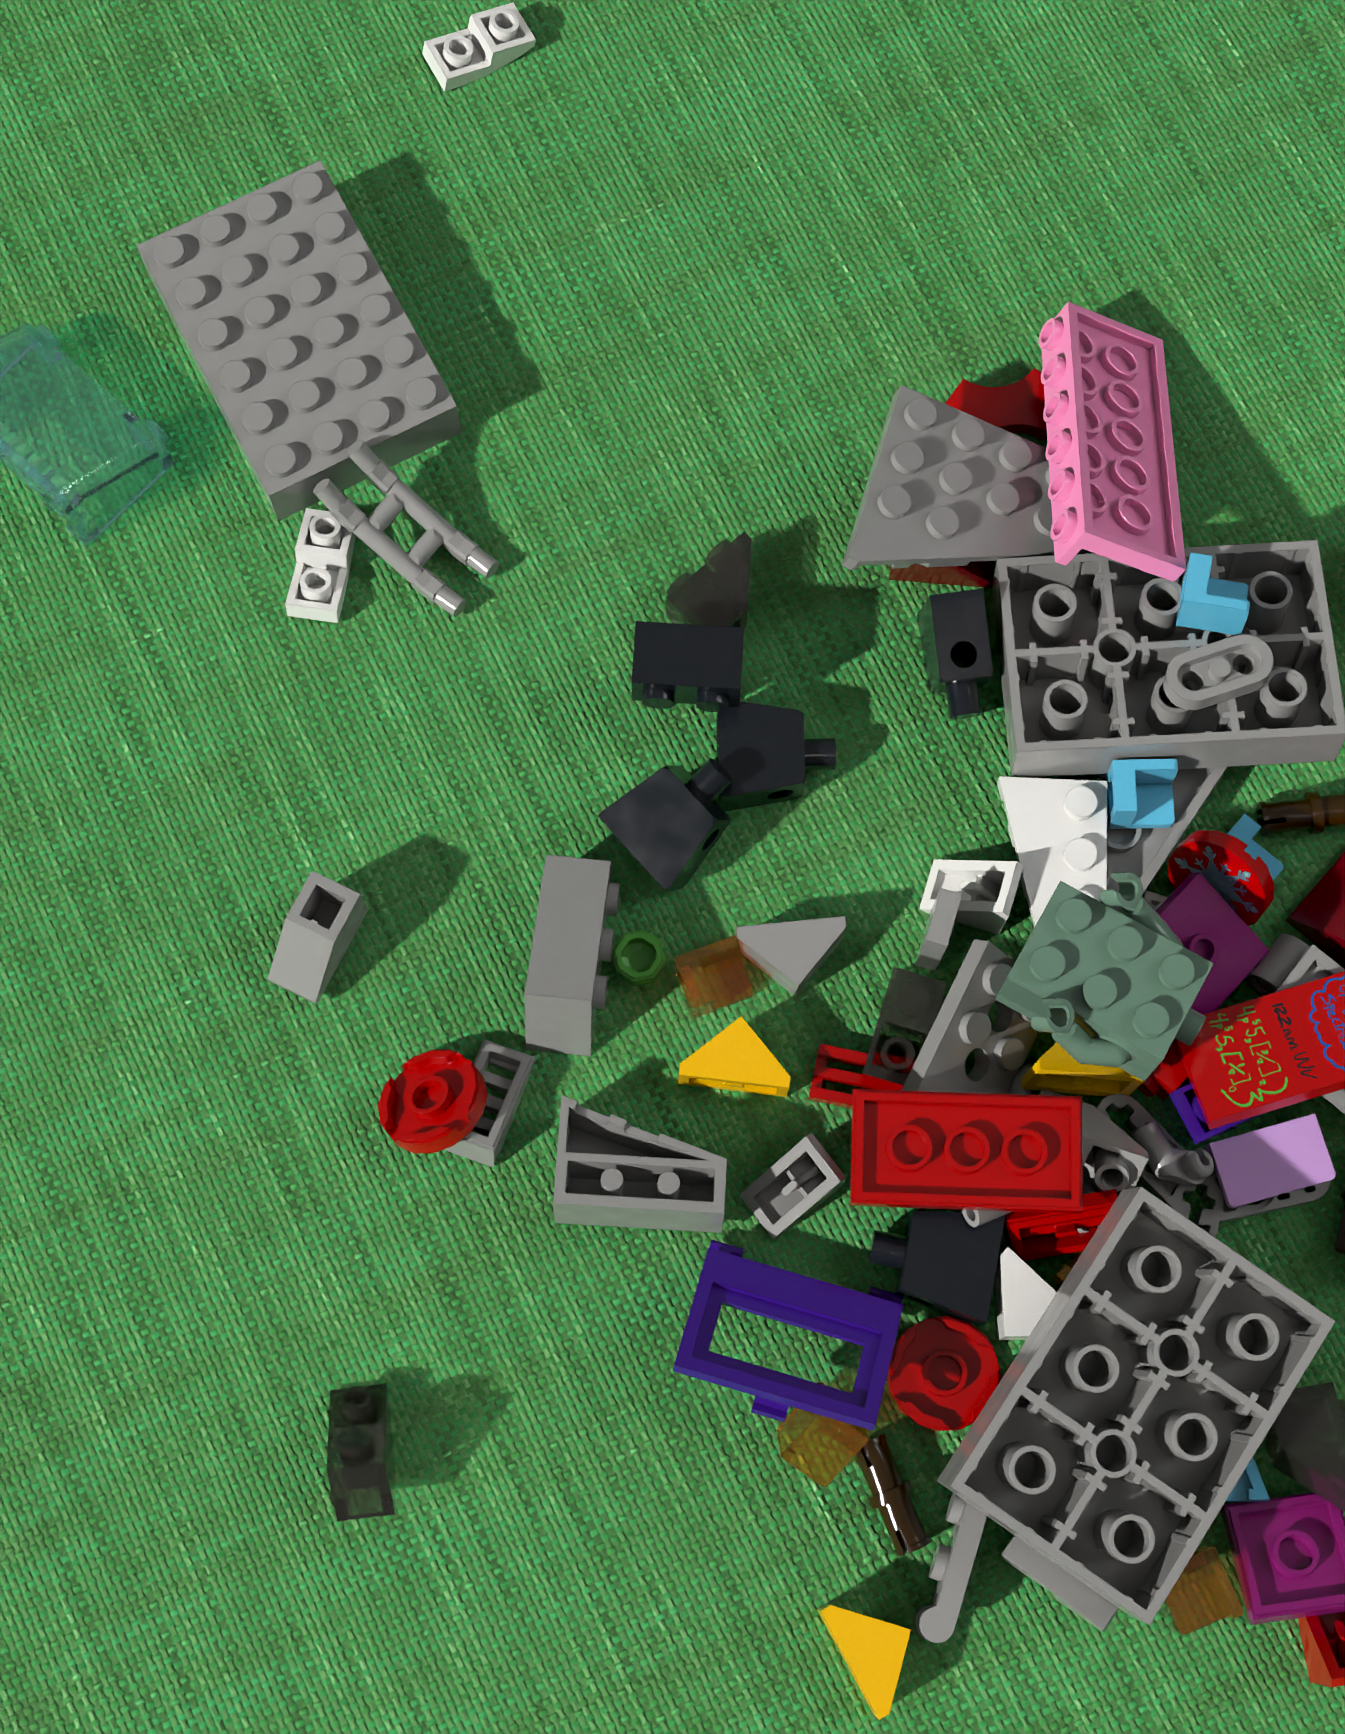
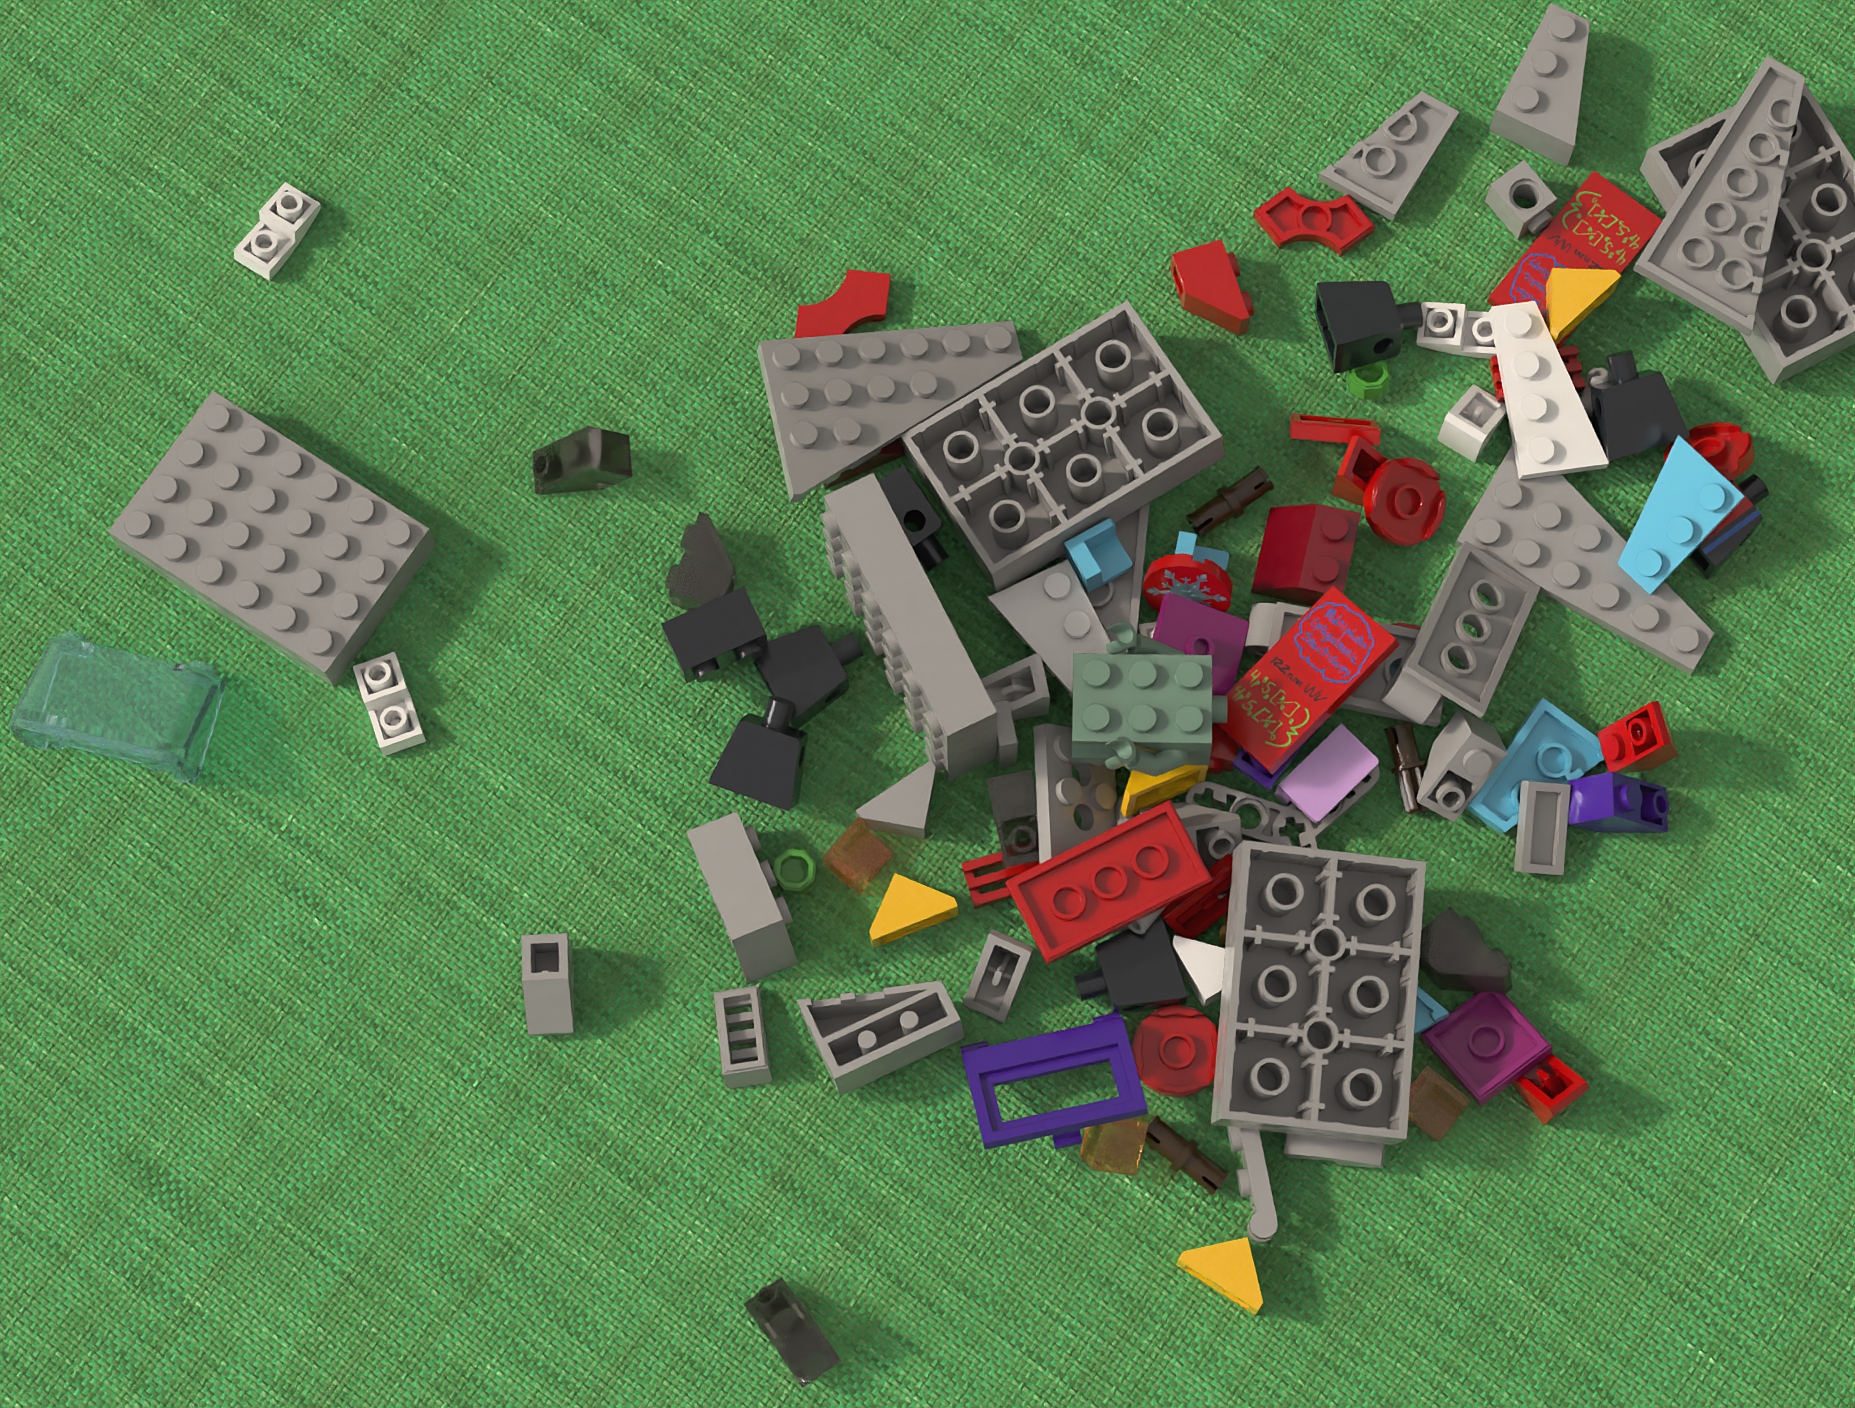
camera: 25 degrees left, 0 degrees up
(401, 498) = (465, 632): light grey piece -> none
(433, 1101) = (703, 1056): red tile -> none
(654, 422) = (582, 462): none -> clear smoke slope
(896, 761) = (909, 628): none -> light grey brick
(1110, 443) = (936, 302): bright pink bracket -> none
(1170, 1162) = (1258, 813): light grey arm -> none
(1211, 602) = (1074, 388): medium azure panel -> none
(1214, 671) = (1104, 441): light grey plate -> none

